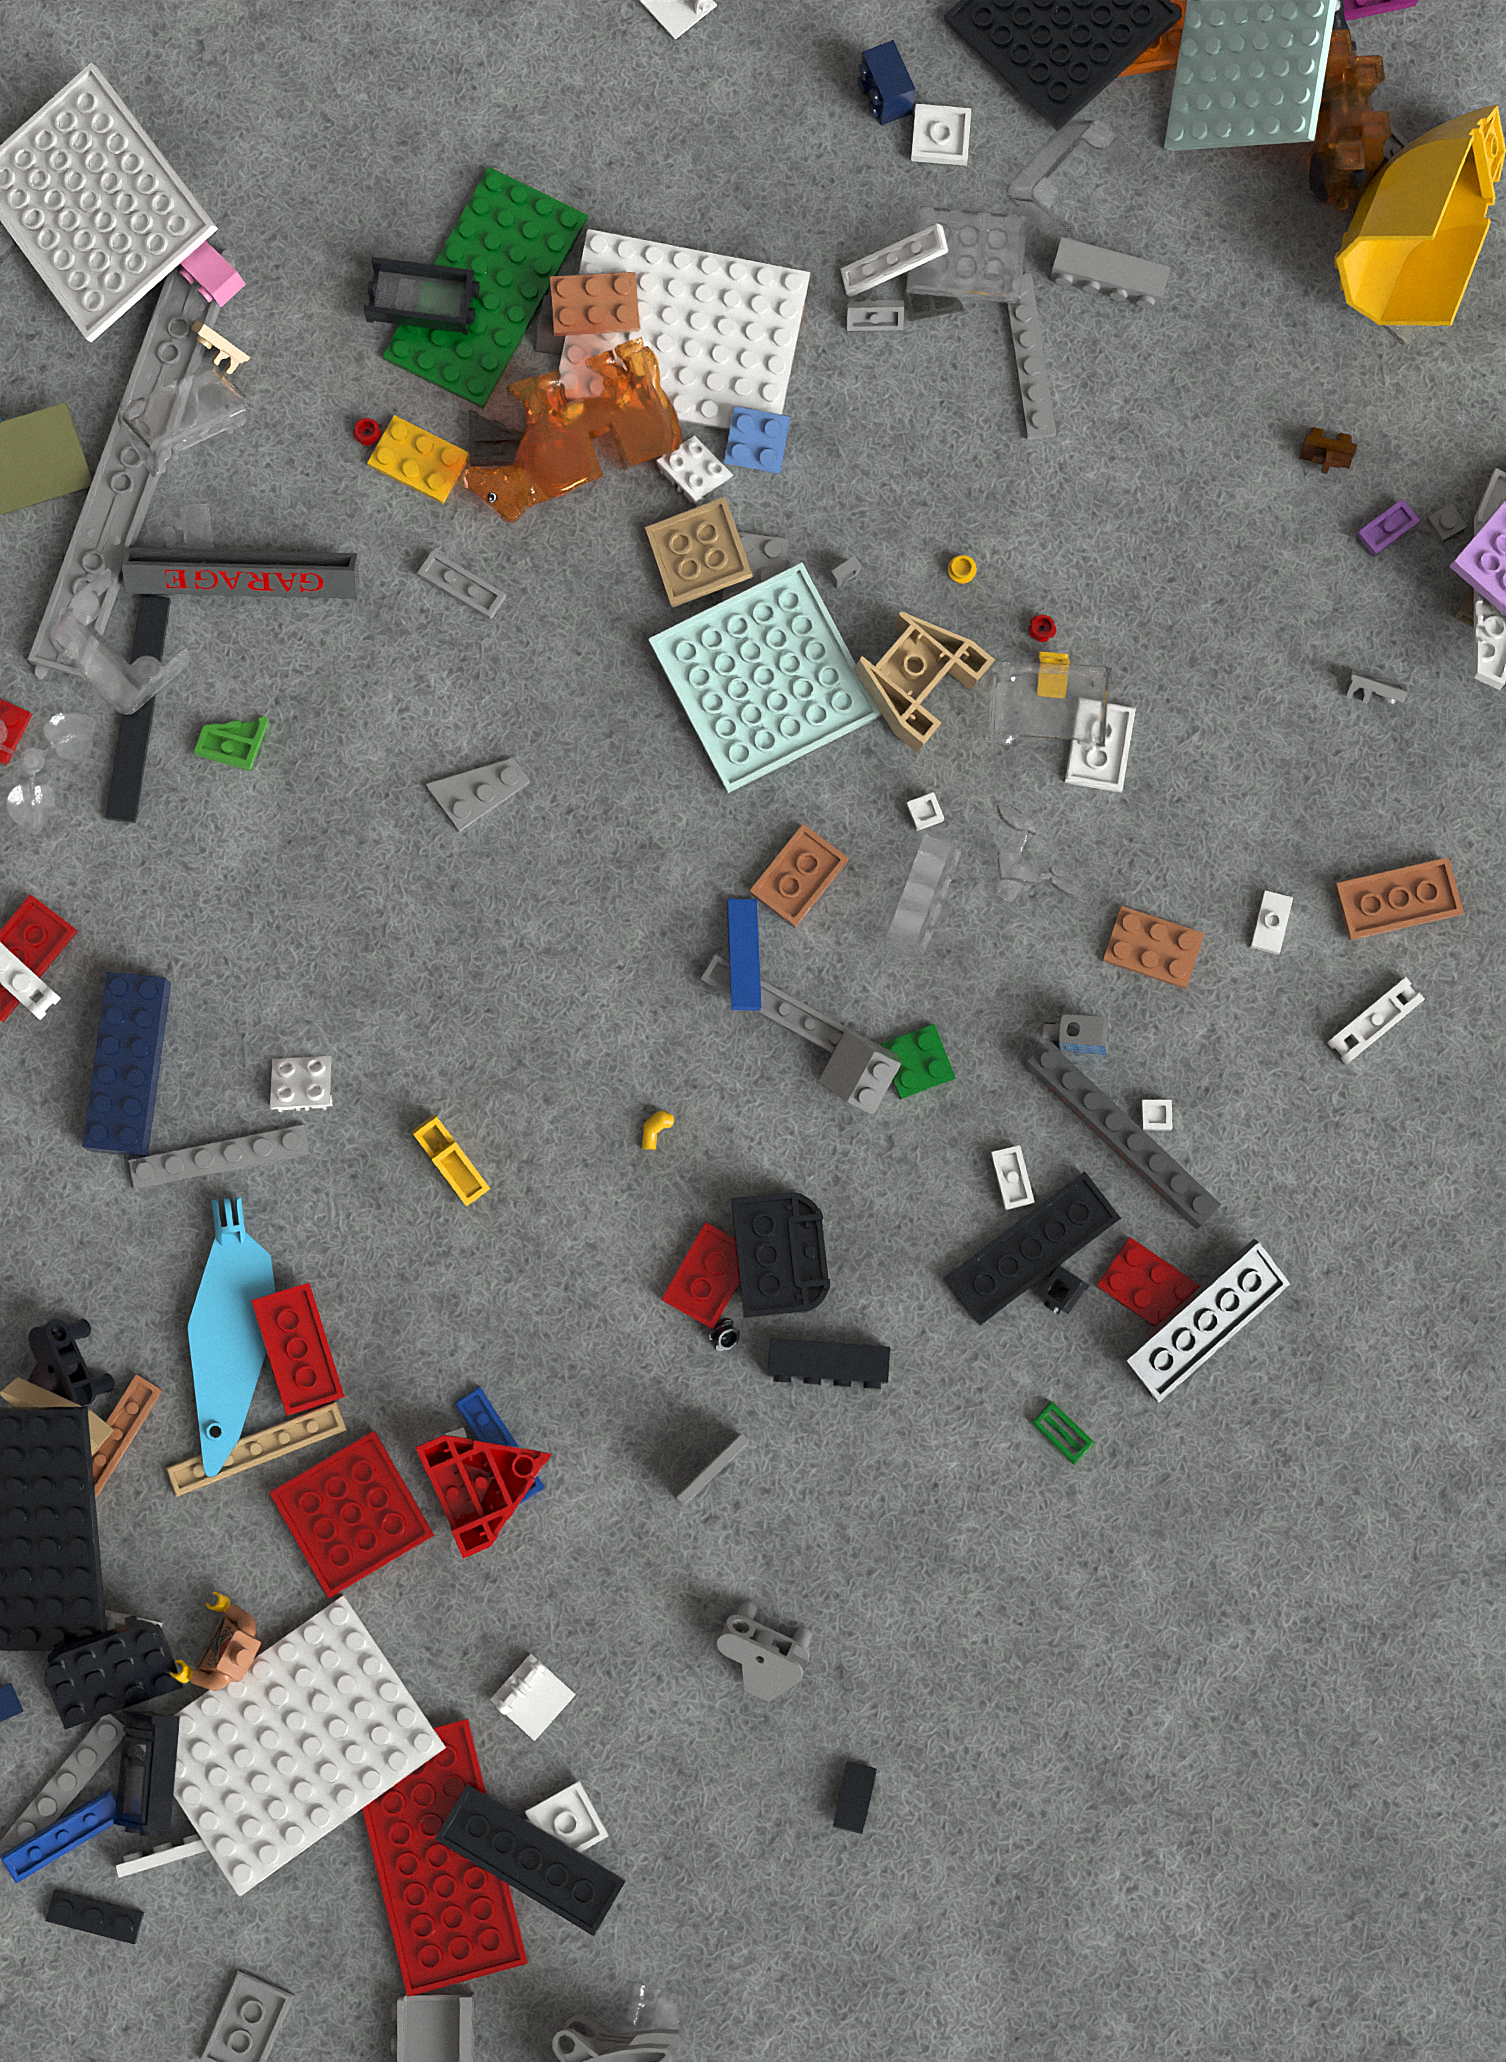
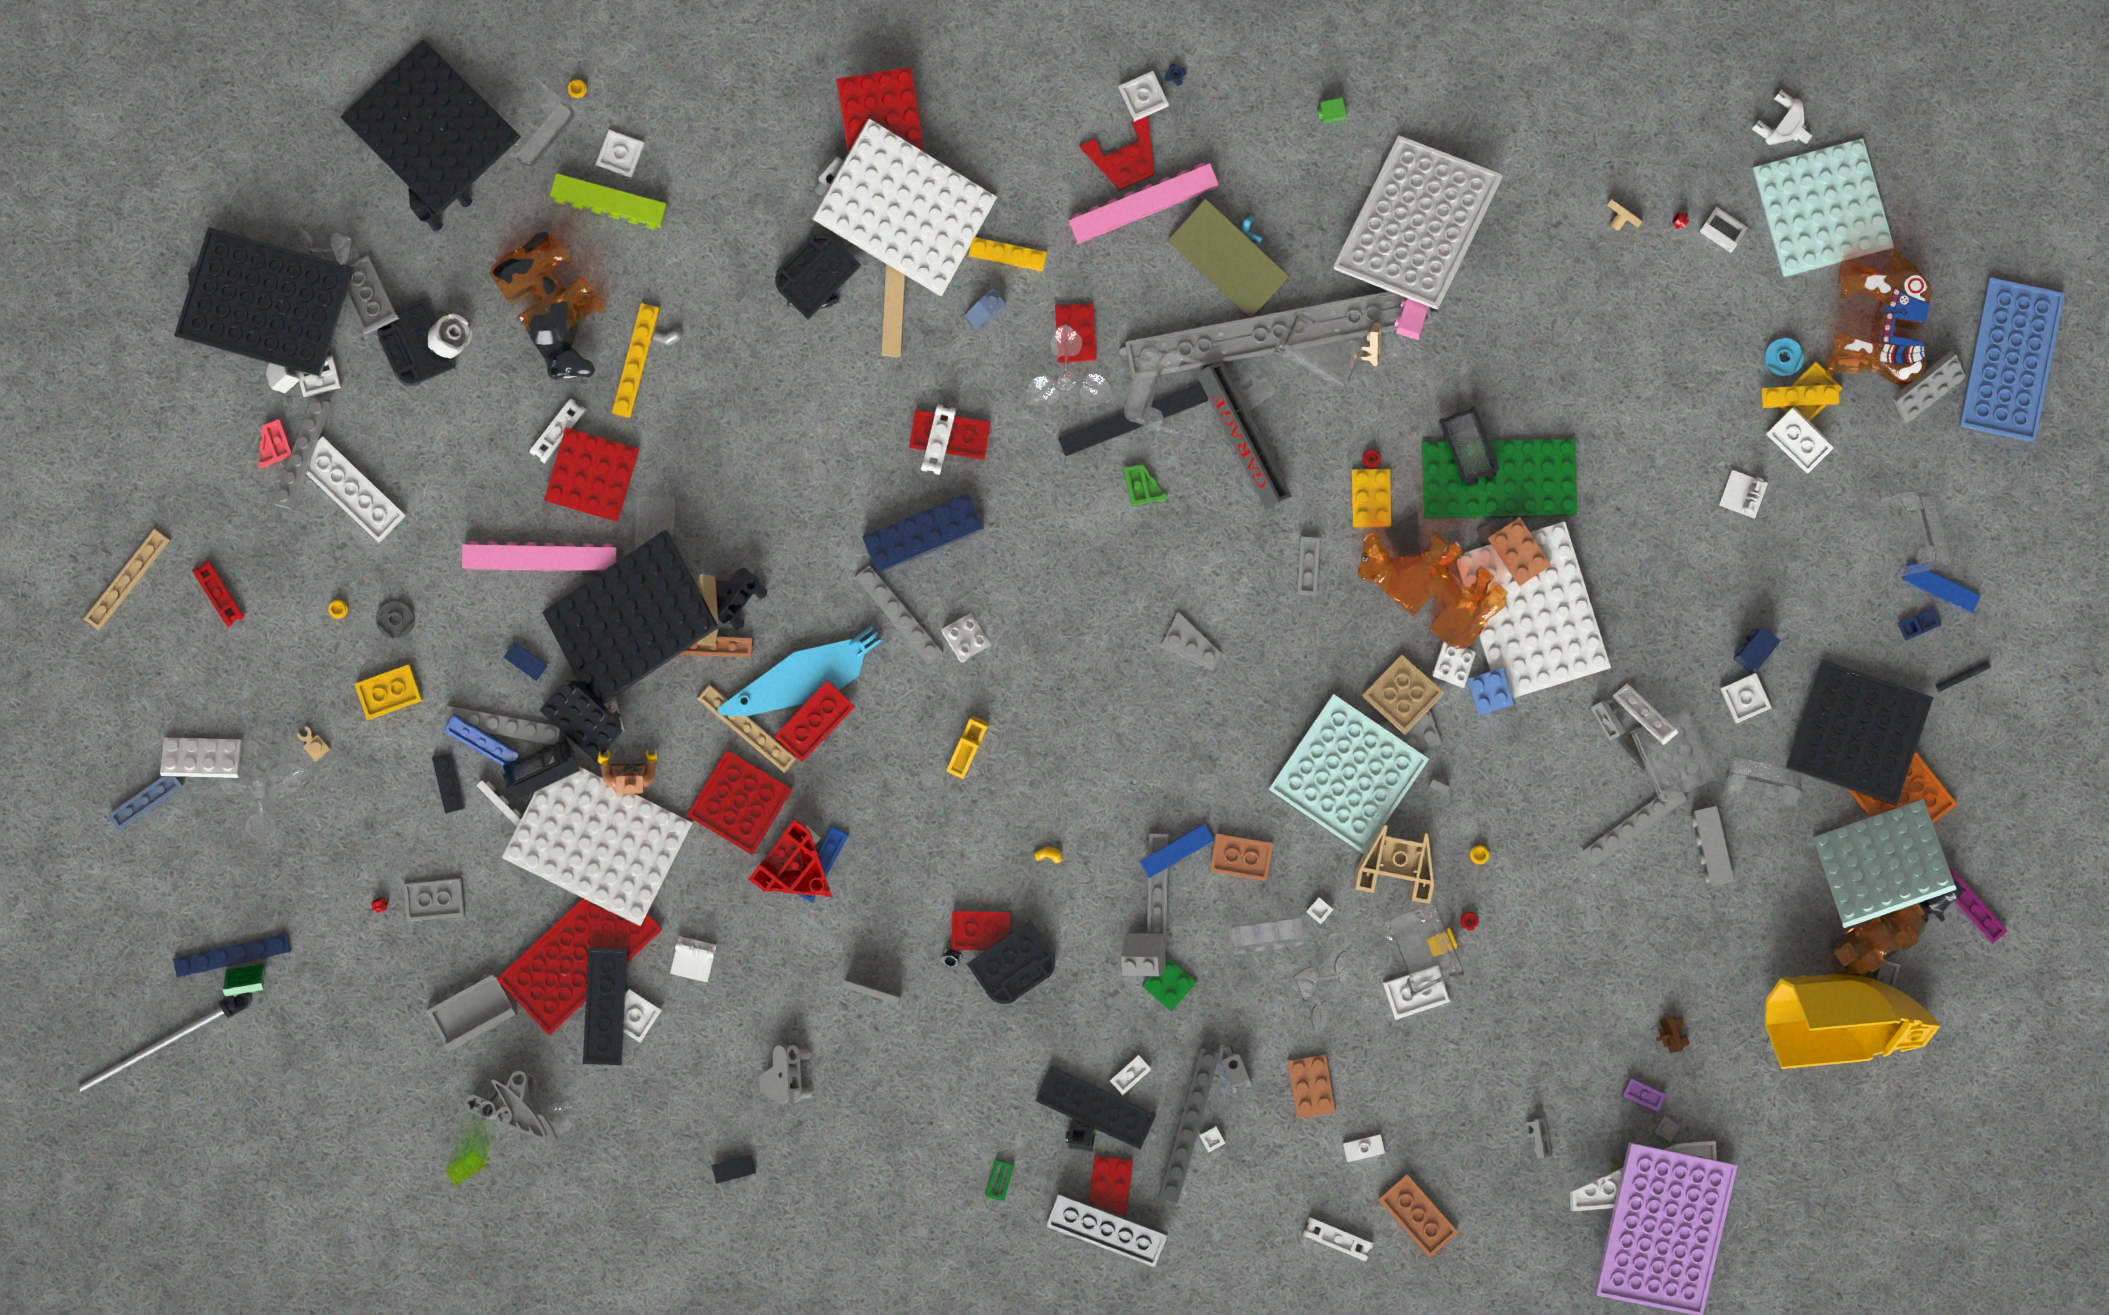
camera: 65 degrees right, 5 degrees up
(828, 1361) = (968, 1025): black brick -> none

